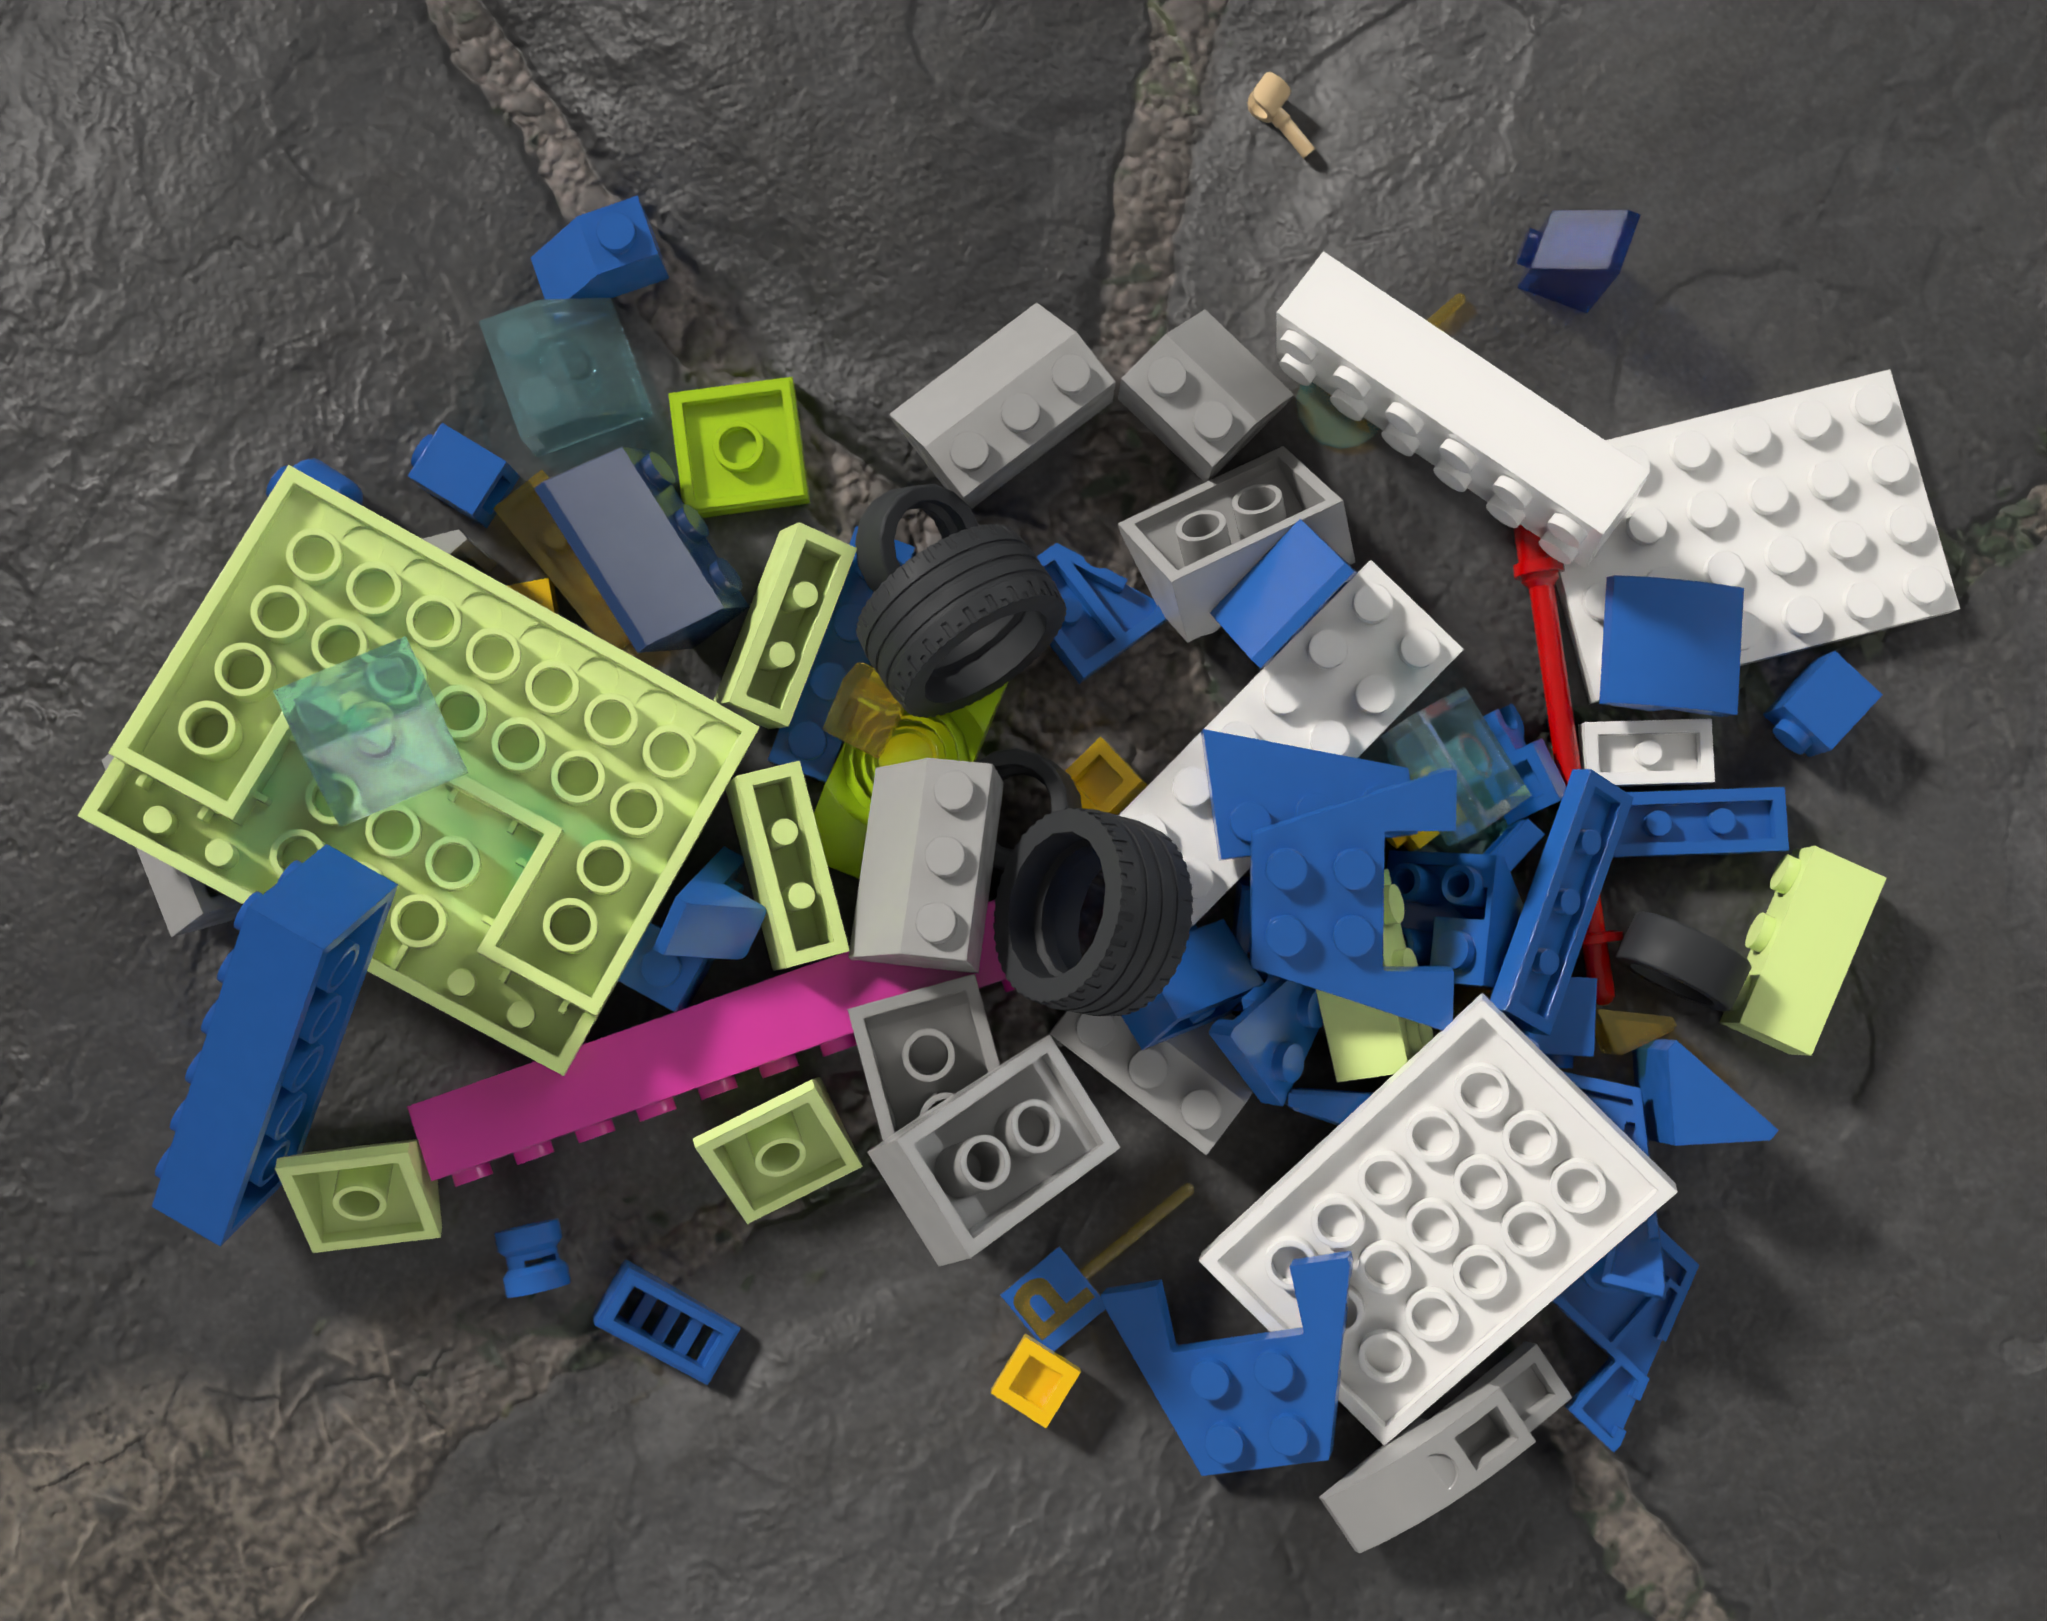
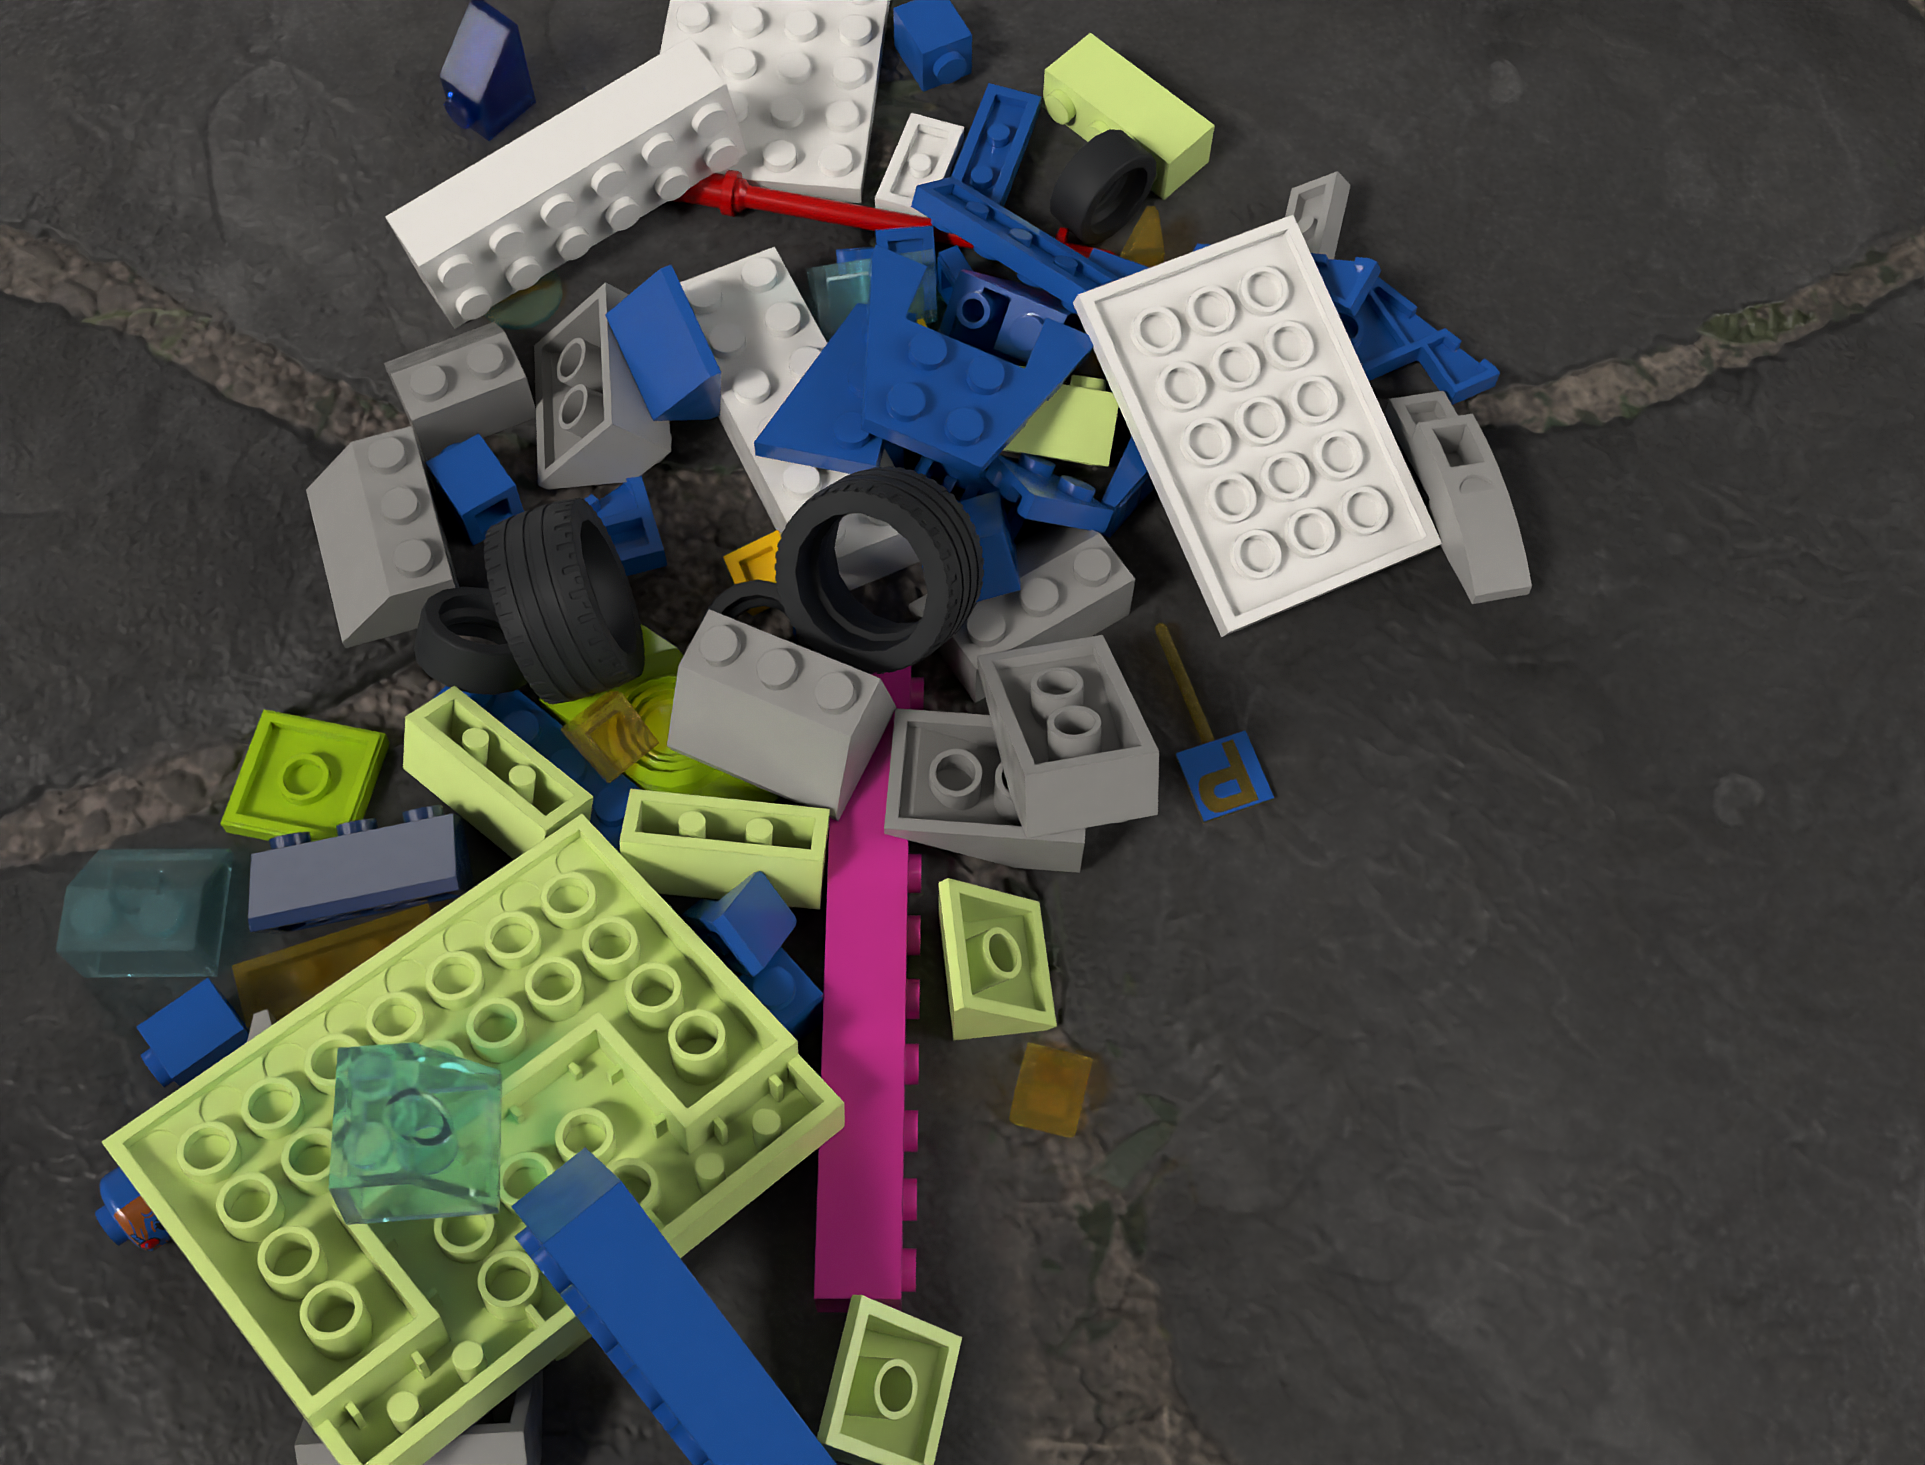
camera: 70 degrees left, 20 degrees down
(529, 1243) = (1016, 1237): blue wheel -> none
(601, 255) = (53, 831): blue slope -> none
(629, 1330) = (1090, 1160): blue slope -> none
(687, 1239) = (1050, 1090): none -> clear yellow slope
(1035, 1380) = (1293, 809): yellow plate -> none
(1090, 464) = (474, 487): none -> blue brick
(1252, 1395) = (1365, 624): blue wing -> none
(1266, 105) = (233, 261): tan hand -> none
(1671, 645) = (838, 111): blue slope -> none
(1690, 1102) = (1215, 202): blue slope -> none
(1730, 1198) = (1320, 211): none -> light grey plate

